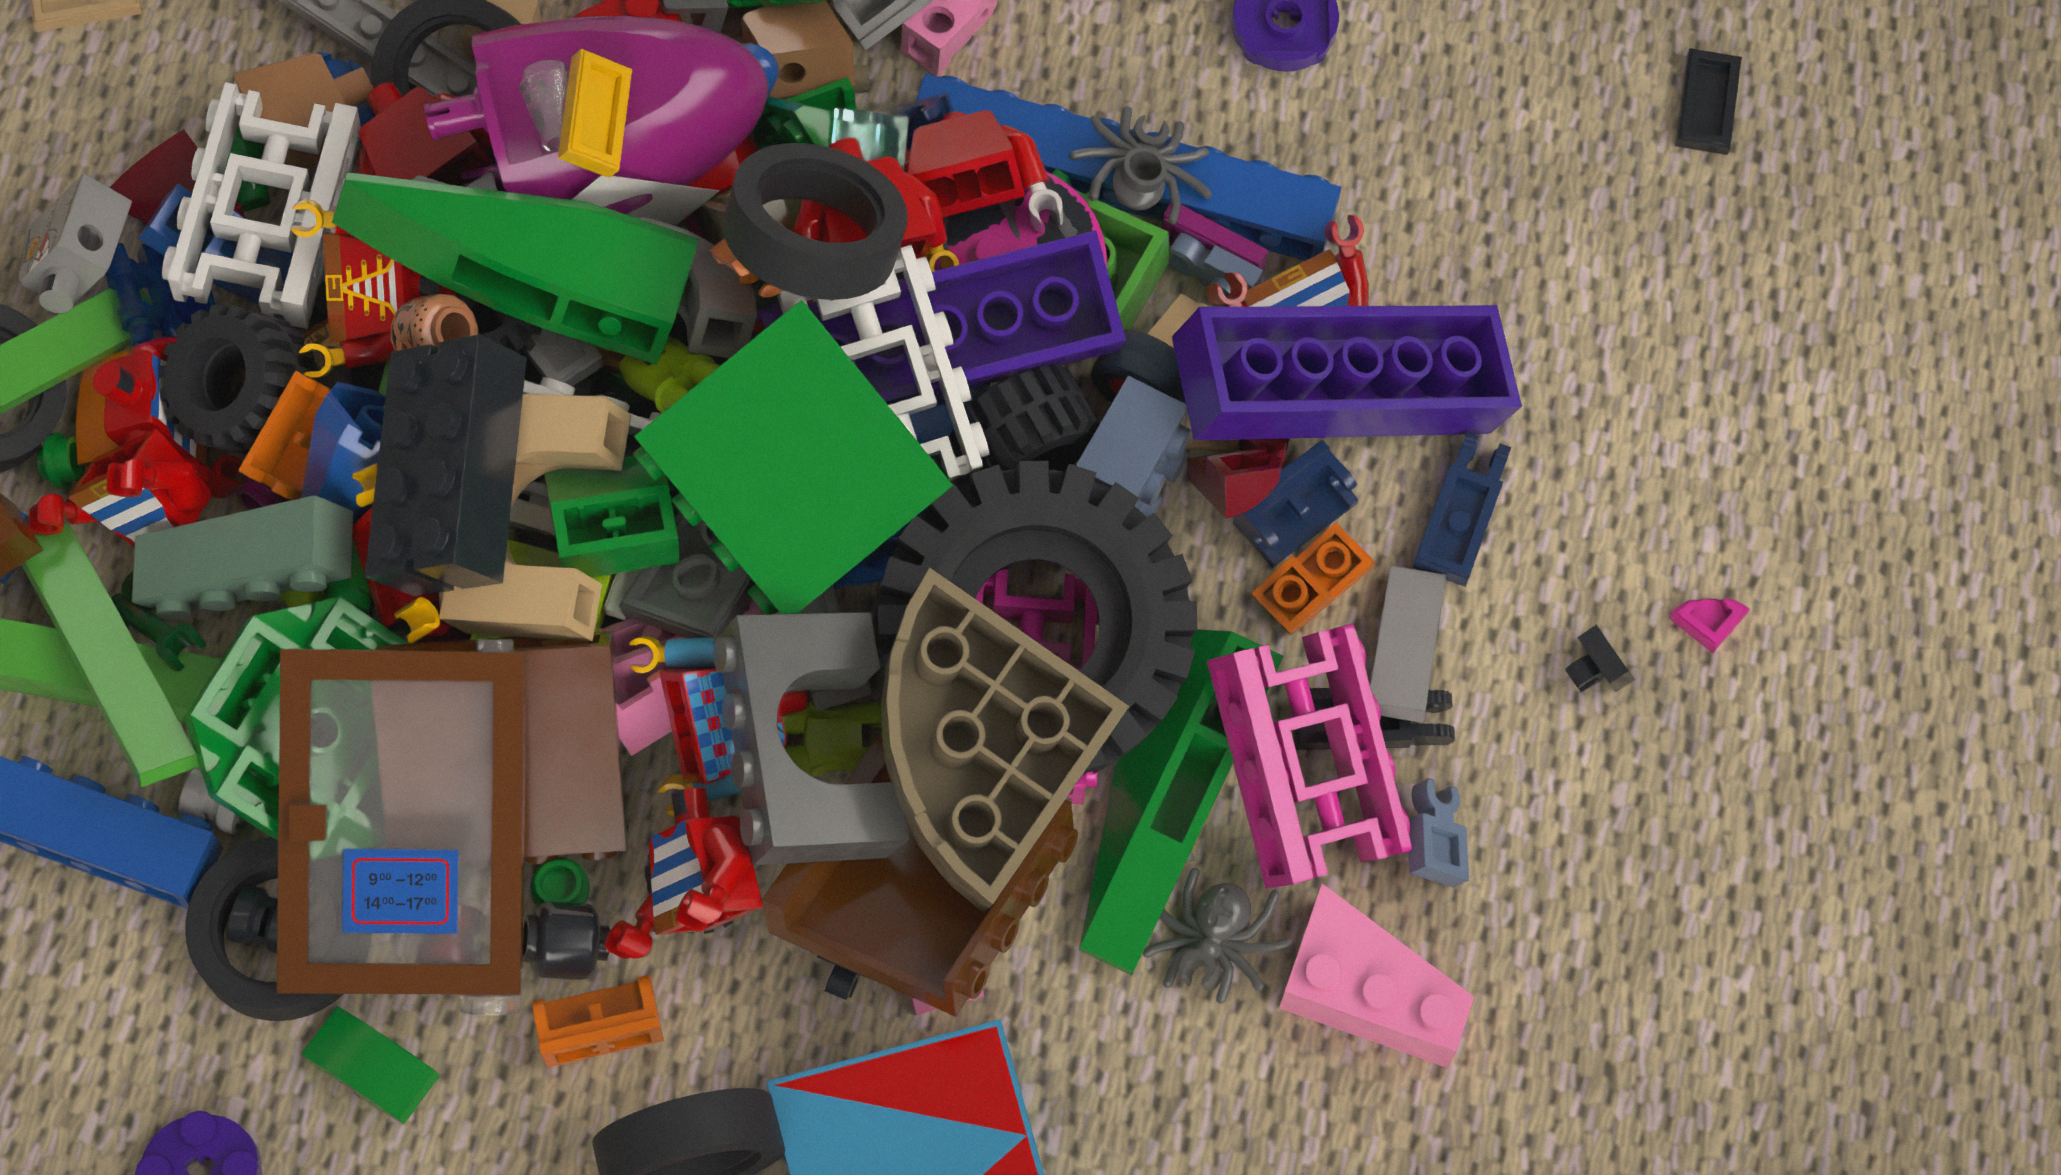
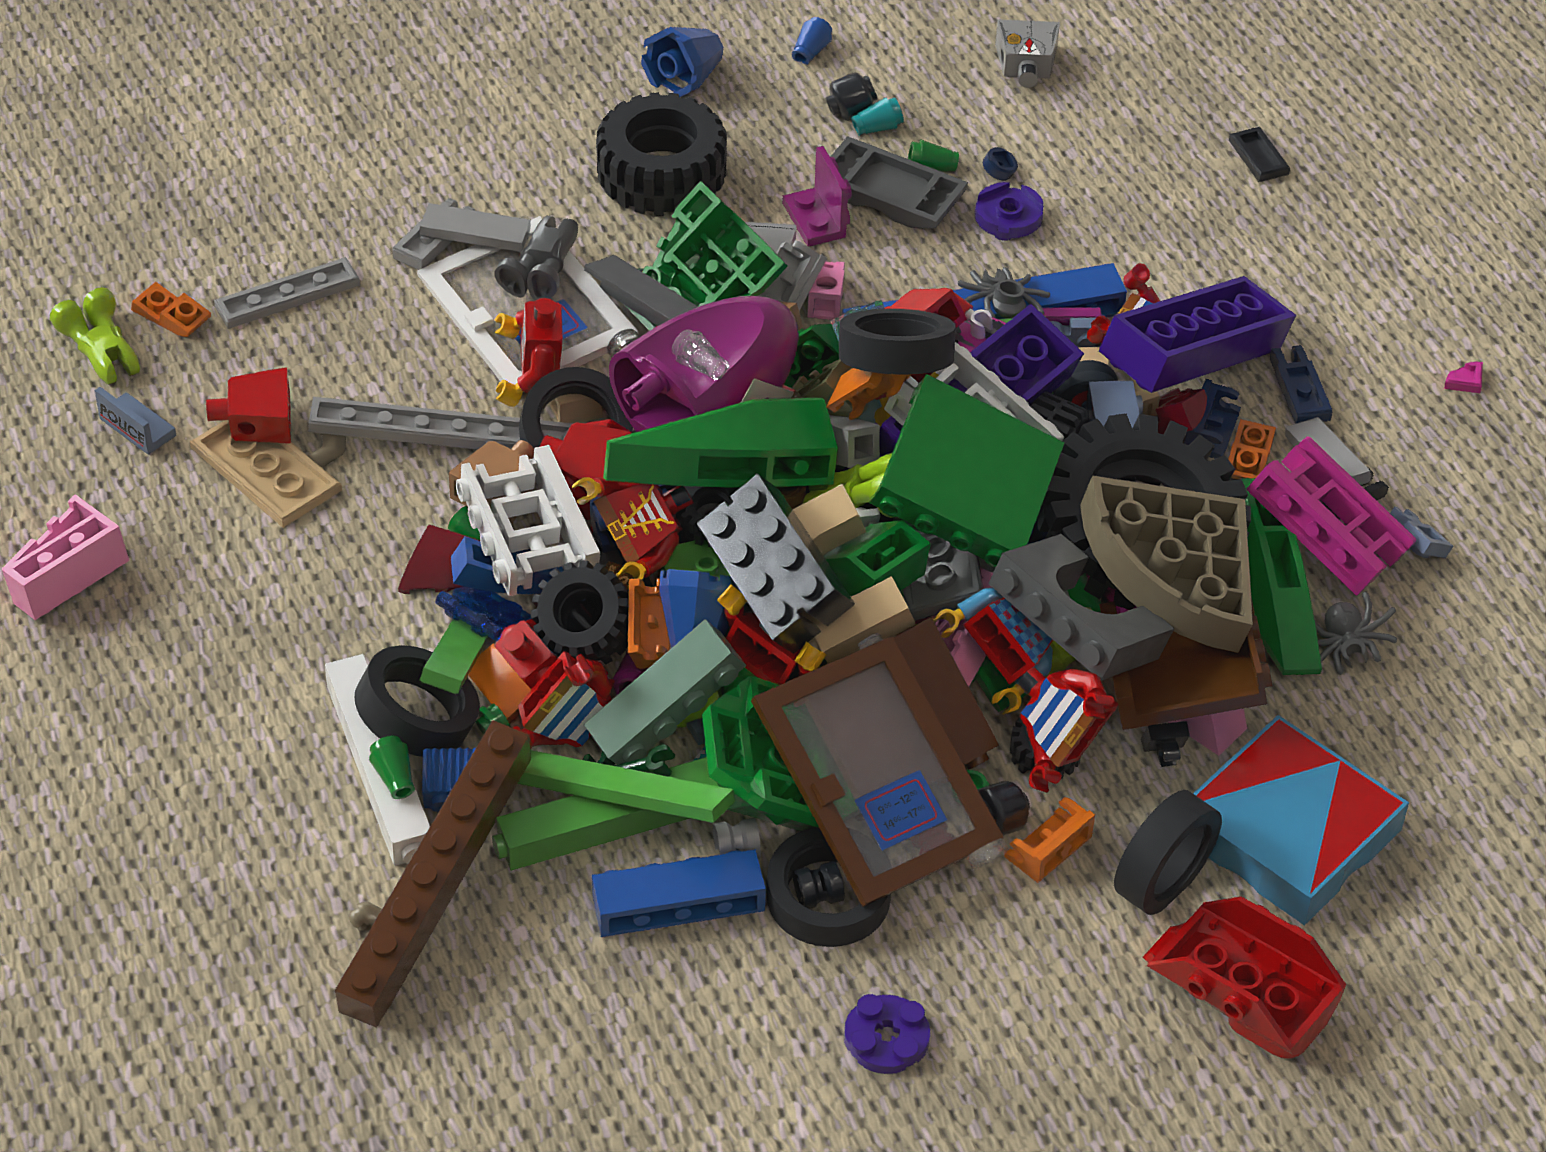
camera: 30 degrees left, 20 degrees down
(60, 263) = (417, 600): light grey torso -> none
(370, 1065) = (945, 925): green slope -> none
(431, 321) = (695, 508): nougat head -> none
(595, 113) = (731, 345): yellow tile -> none
(1373, 985) = (1450, 612): bright pink wedge -> none
(1599, 663) = (1431, 416): black tile -> none

